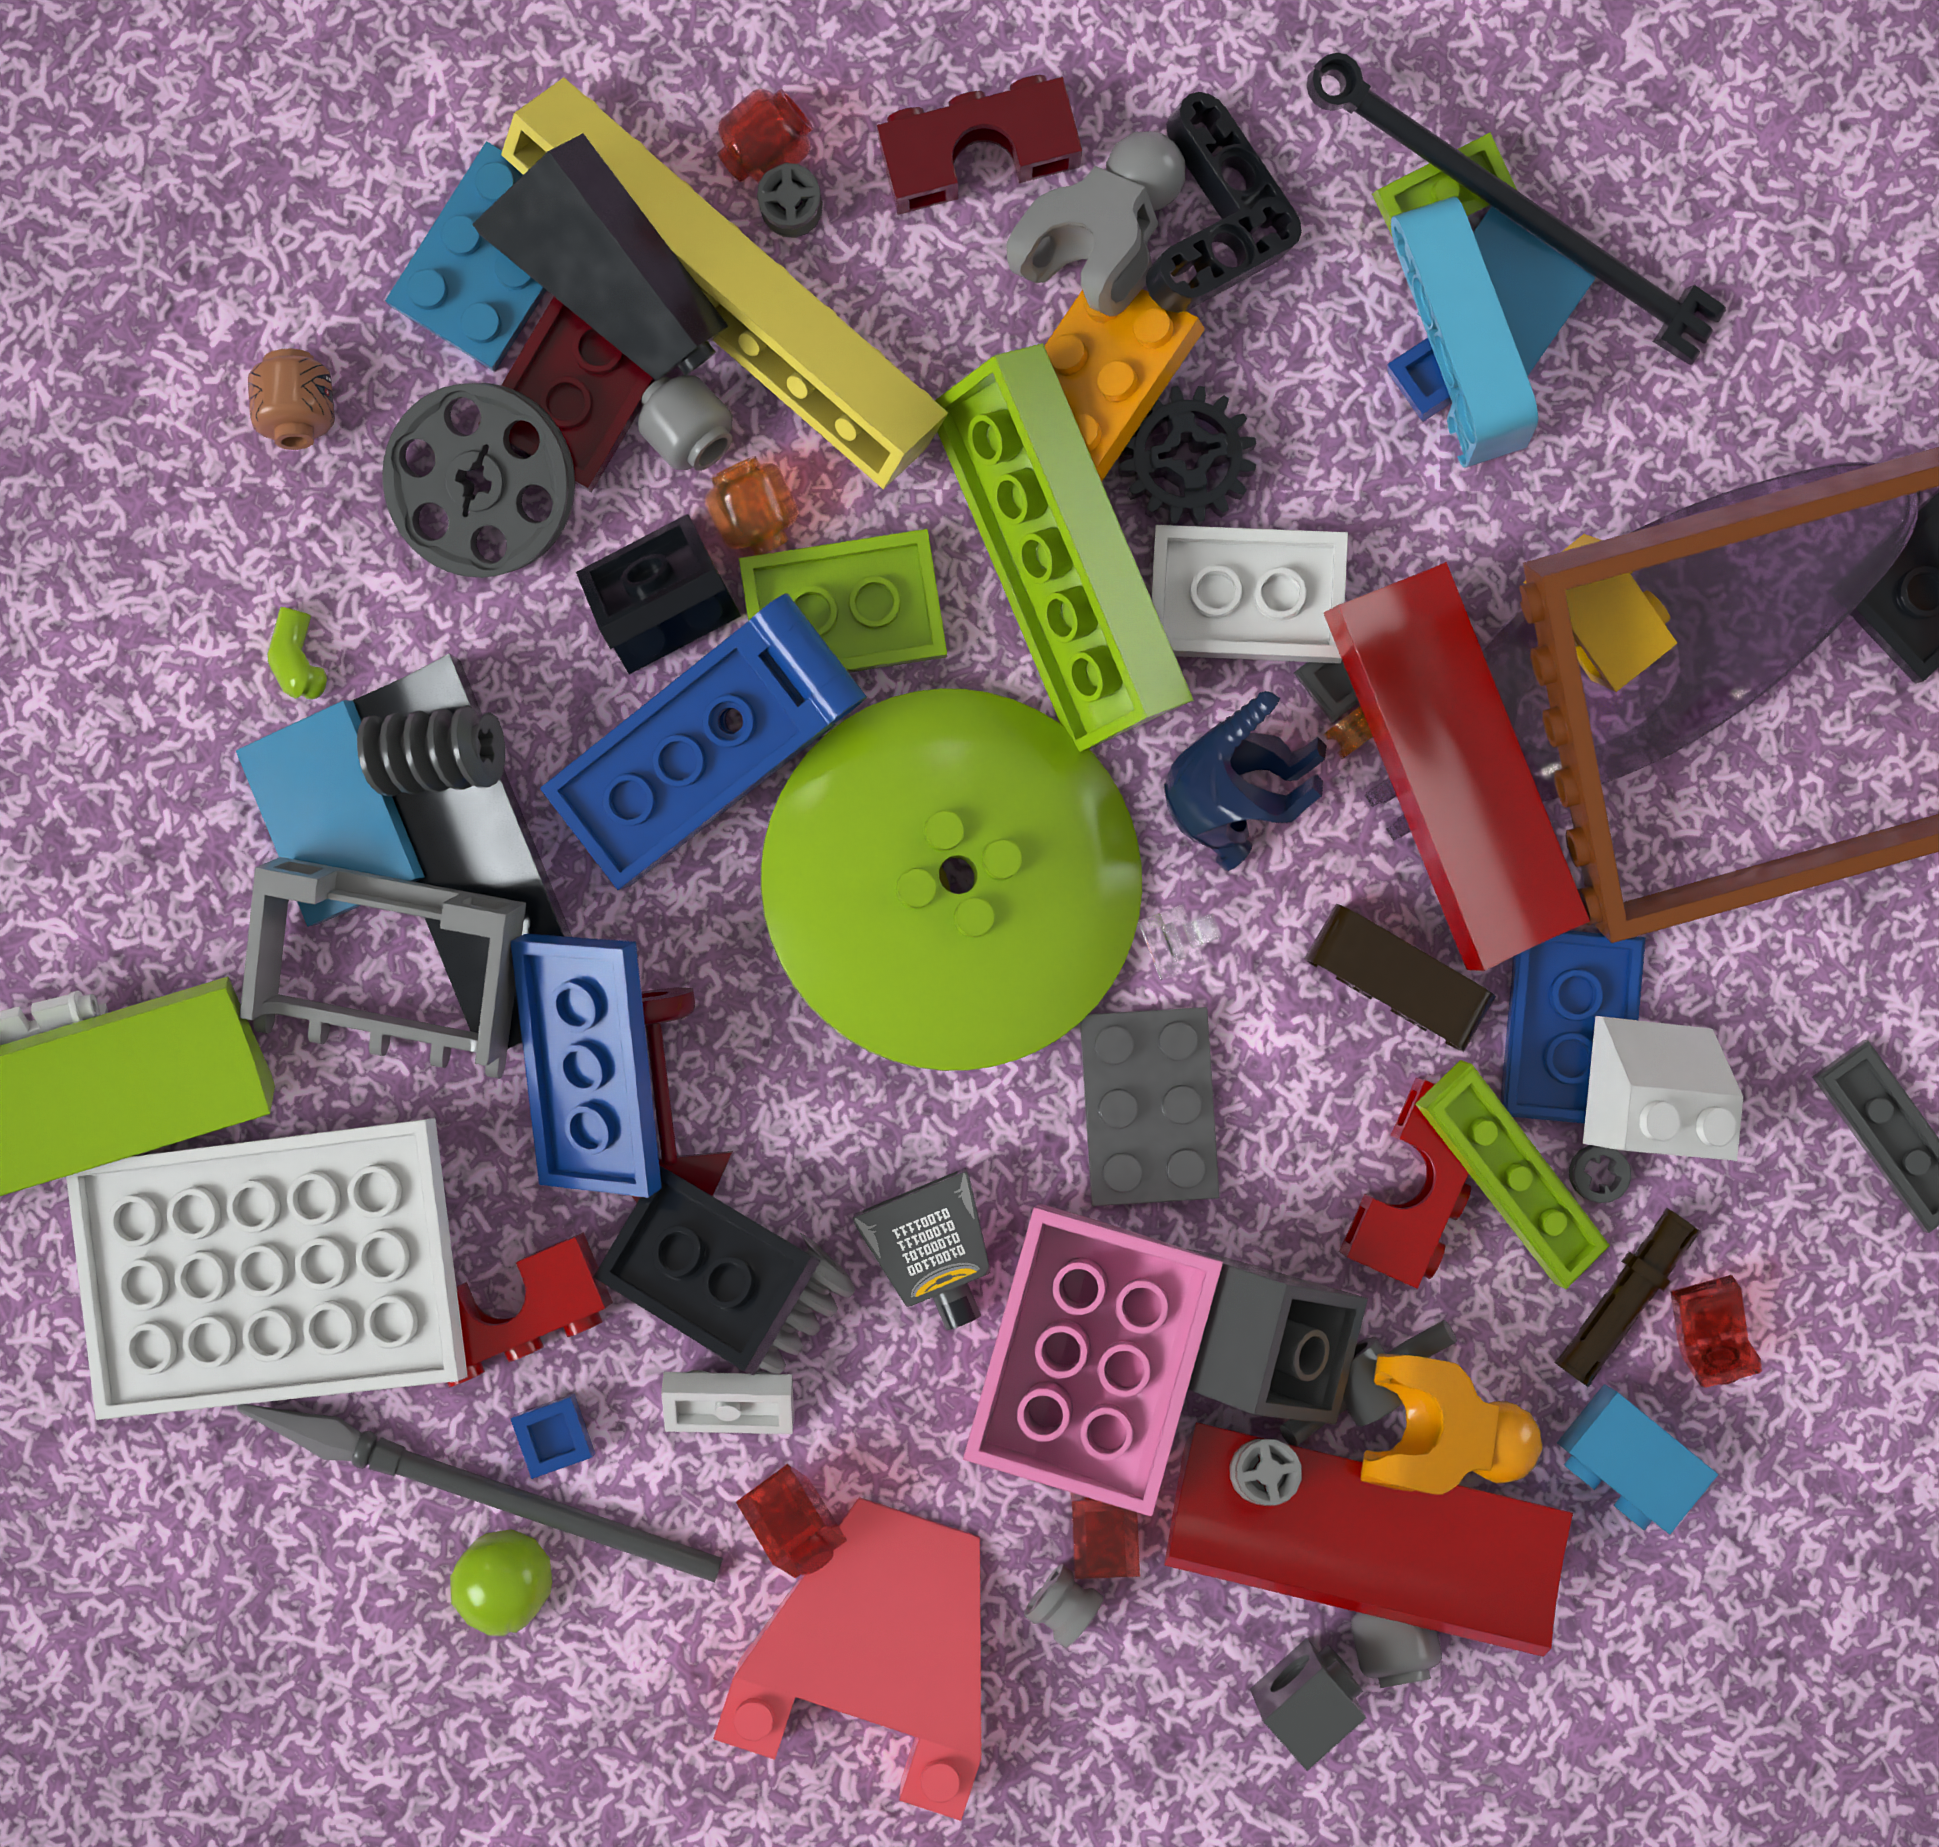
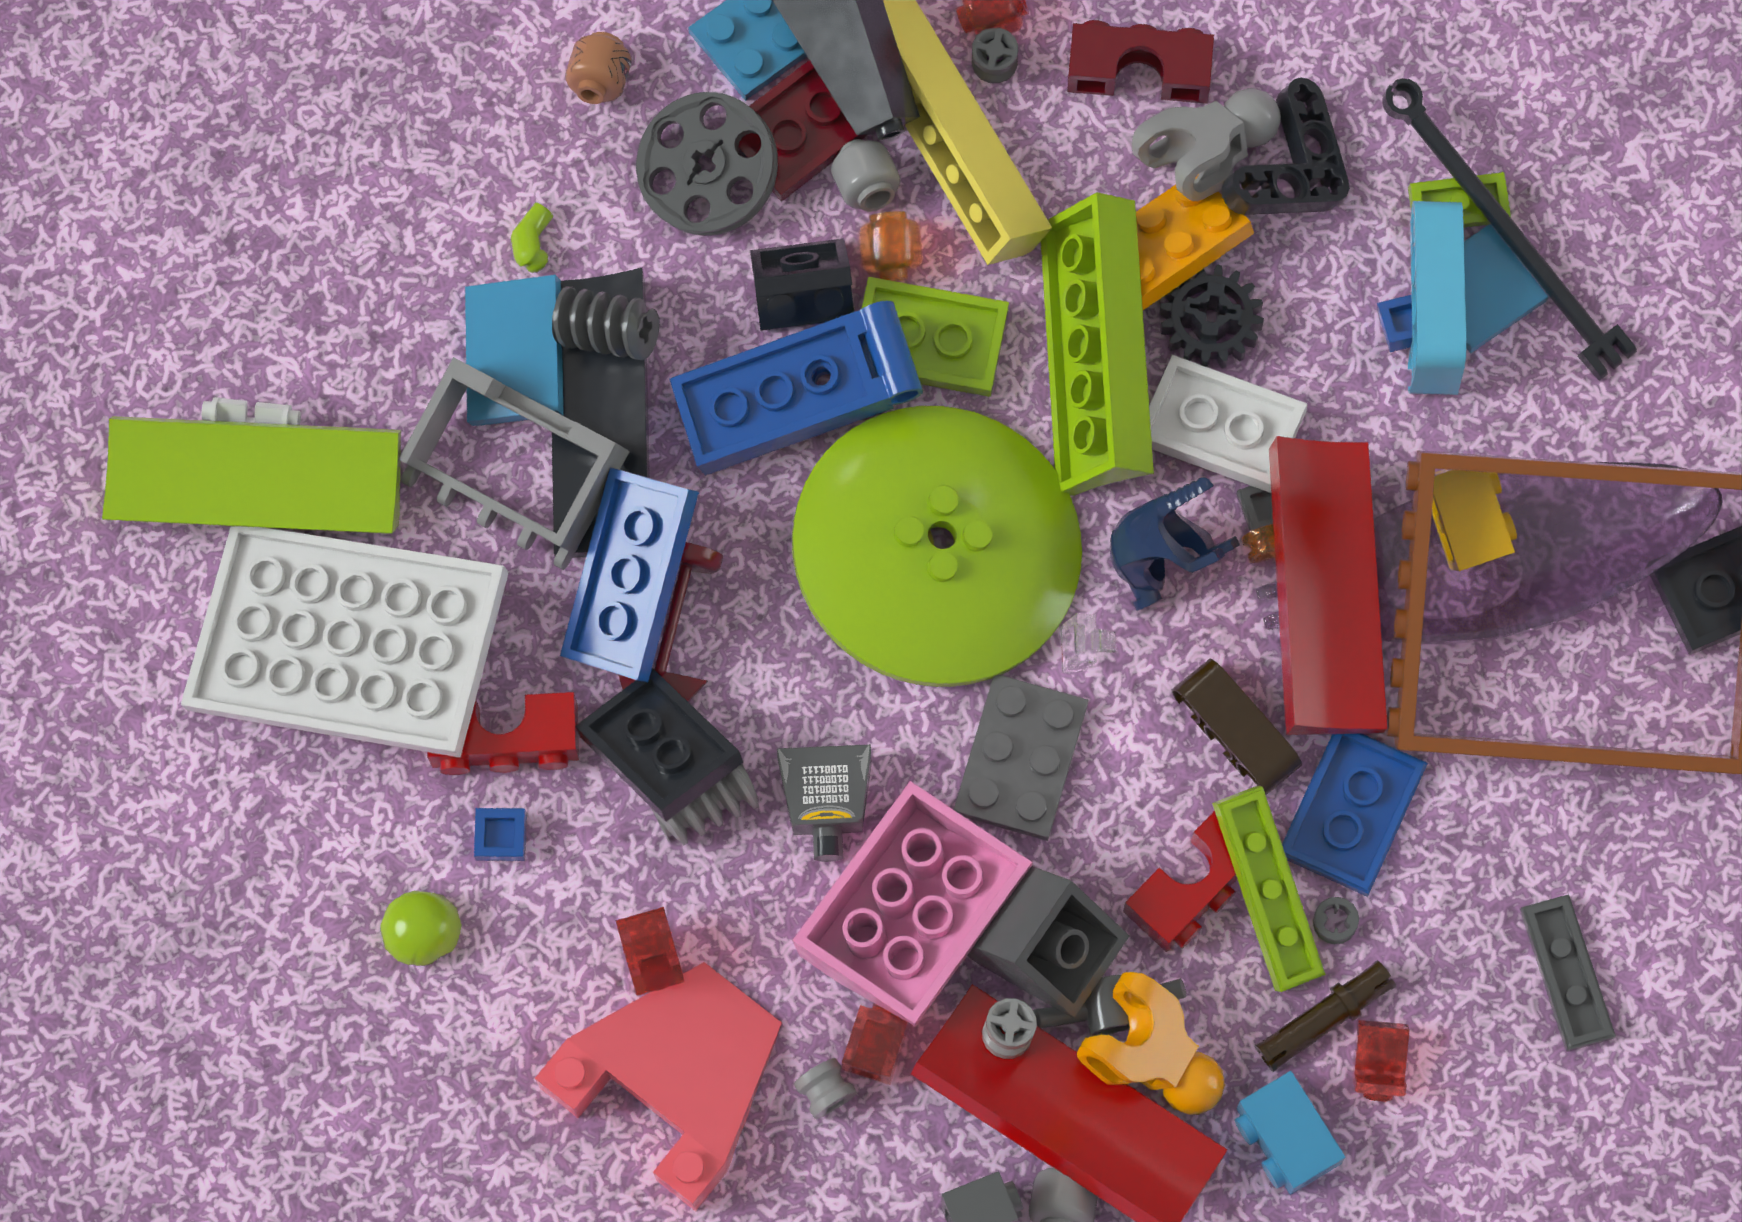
camera: 25 degrees right, 15 degrees down
(337, 1440) = (343, 783): dark grey piece -> none
(728, 1402) = (636, 854): white plate -> none
(1661, 1091) = (1398, 871): white slope -> none

